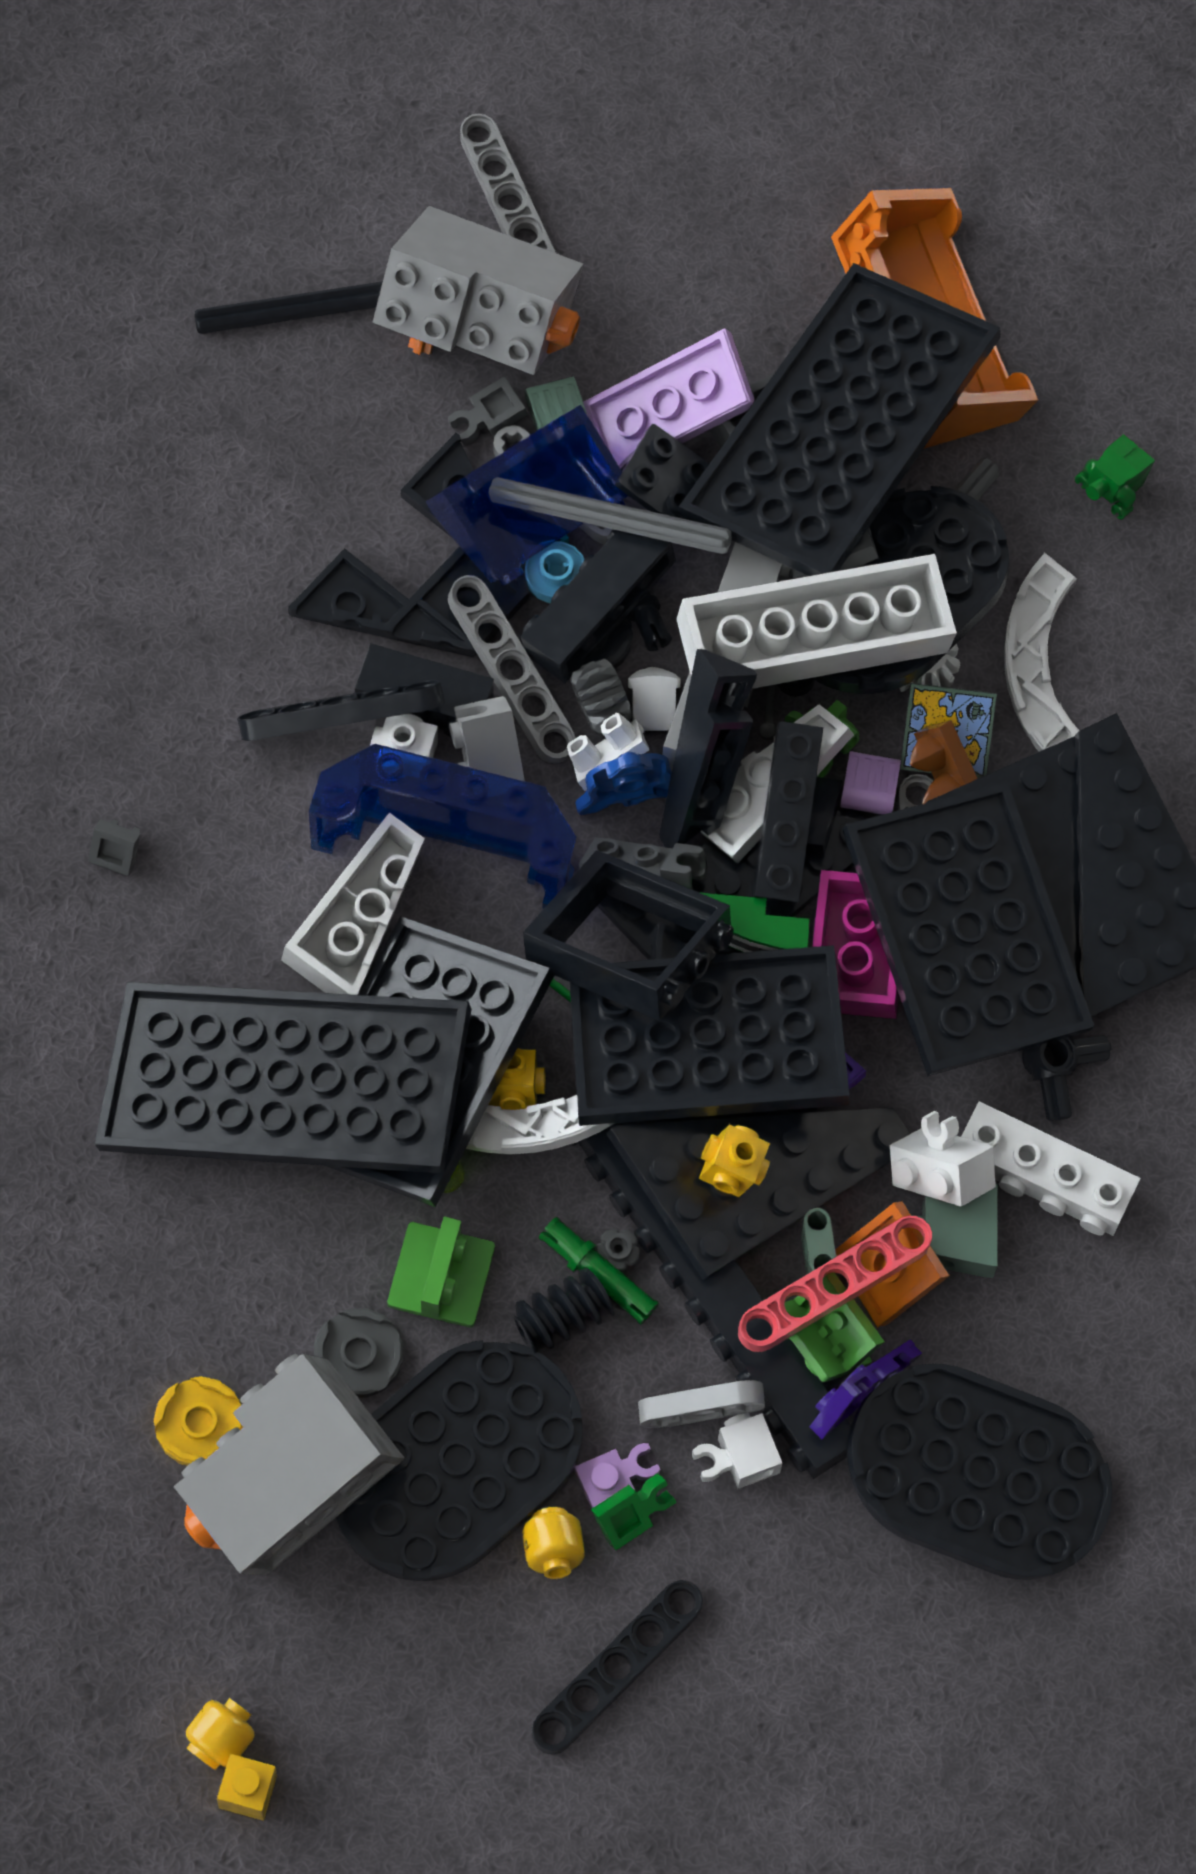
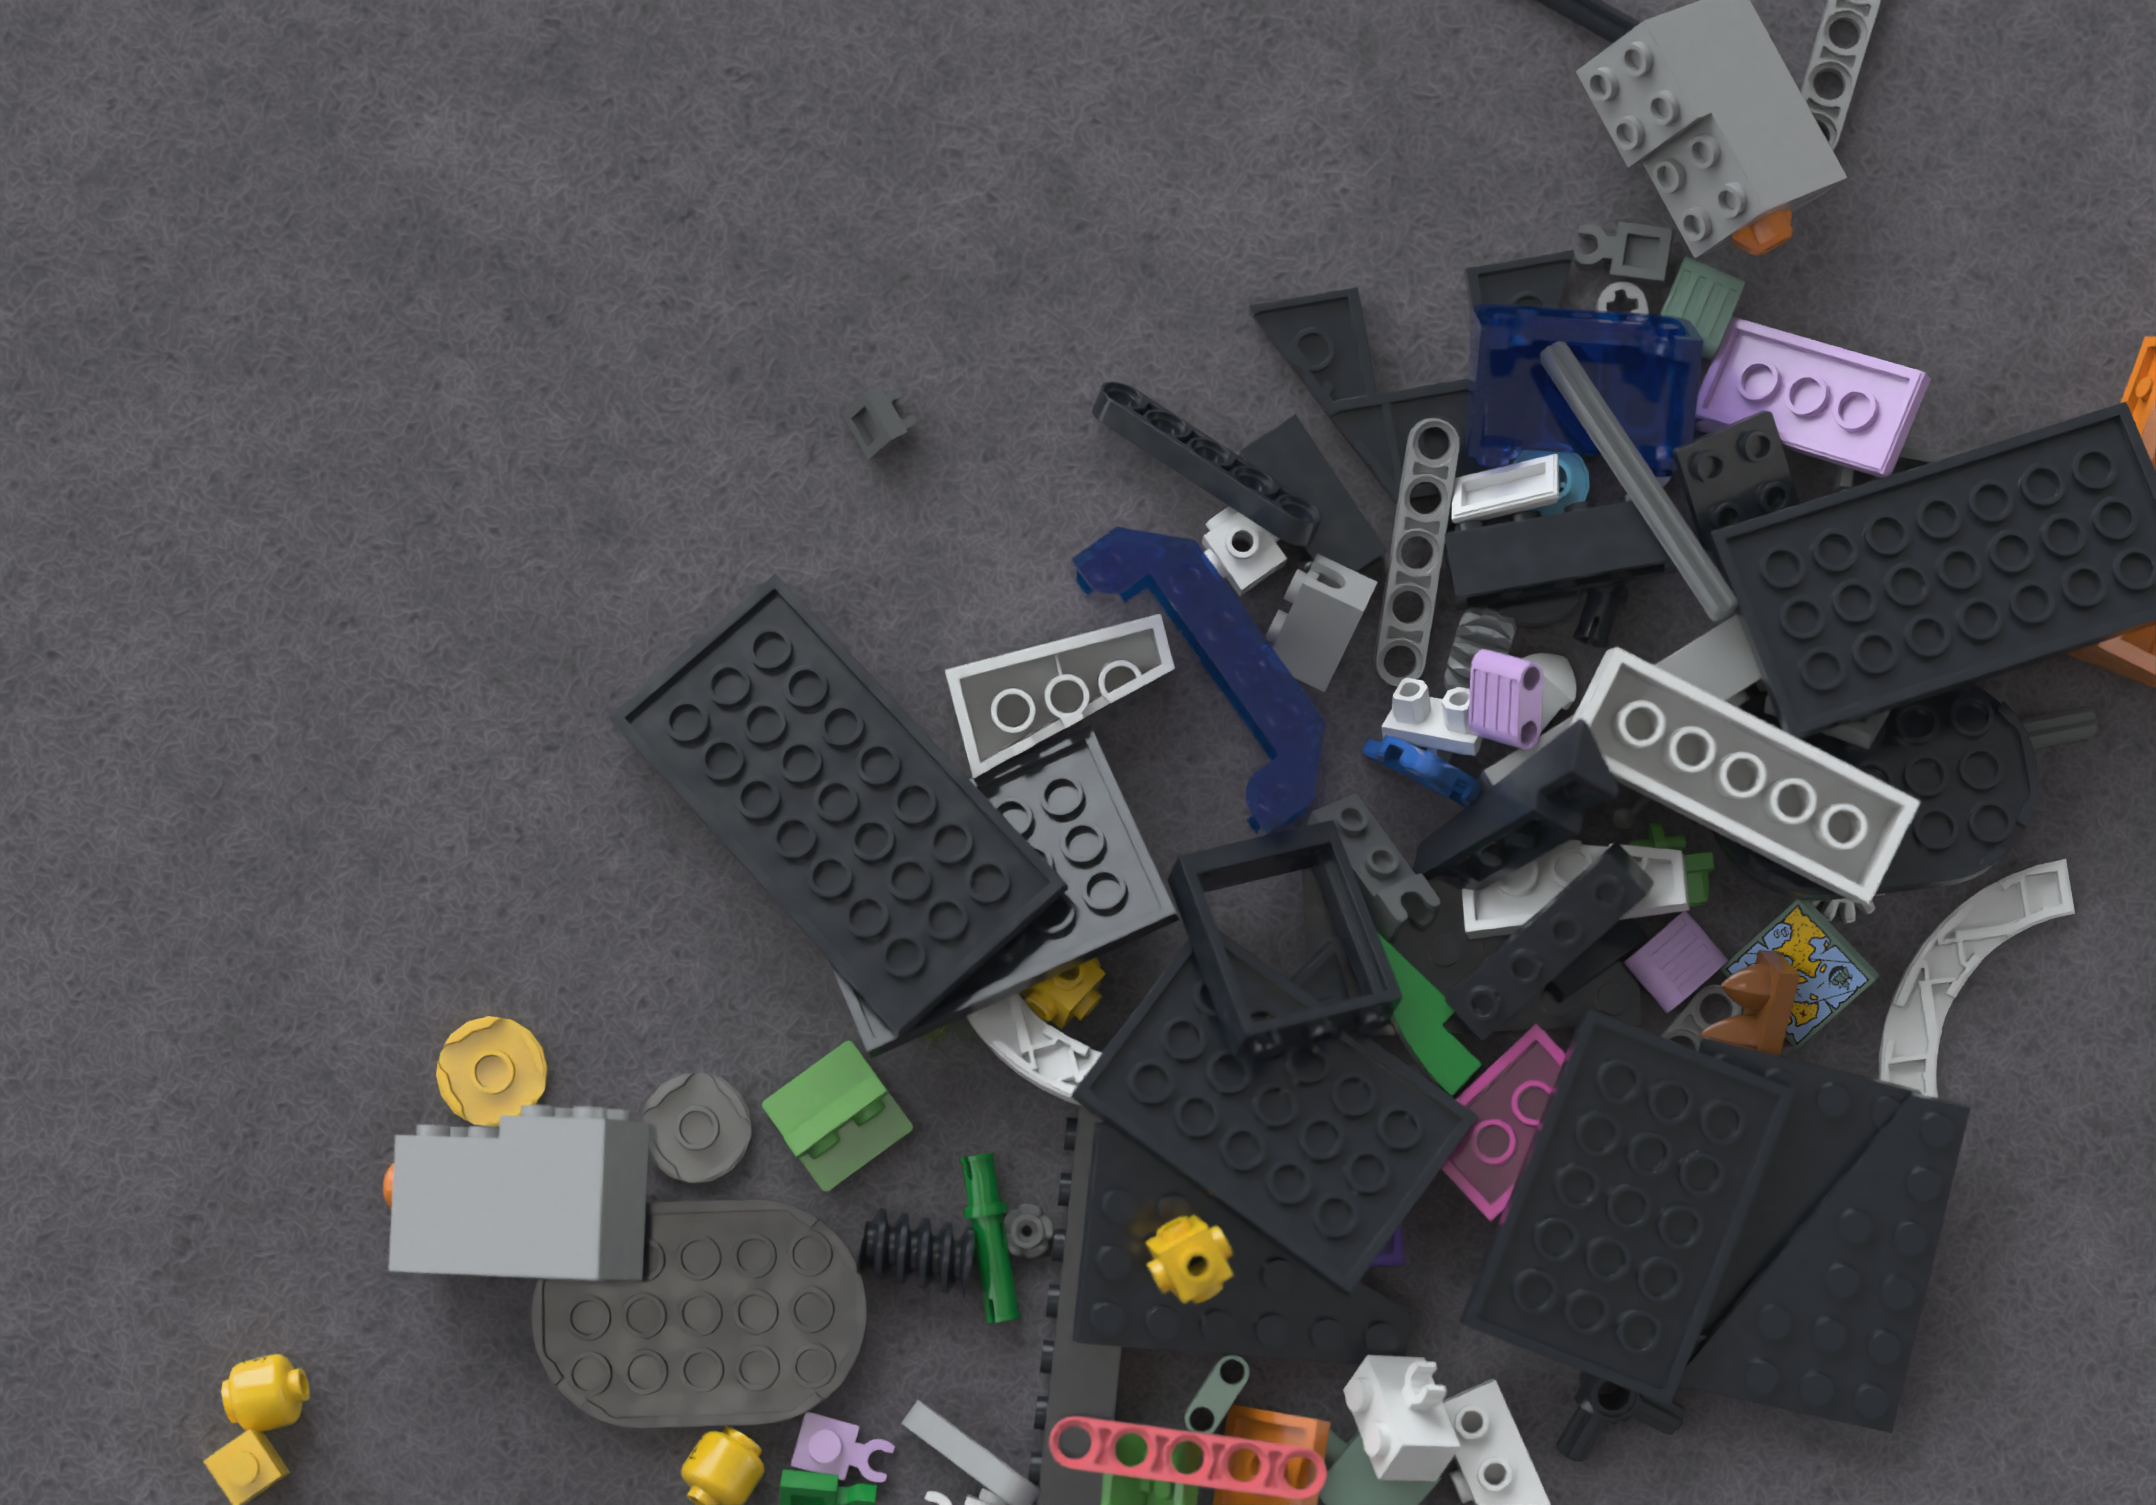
camera: 40 degrees right, 15 degrees up
(536, 586) = (1506, 490): none -> white tile
(640, 695) = (1505, 699): none -> lavender piece

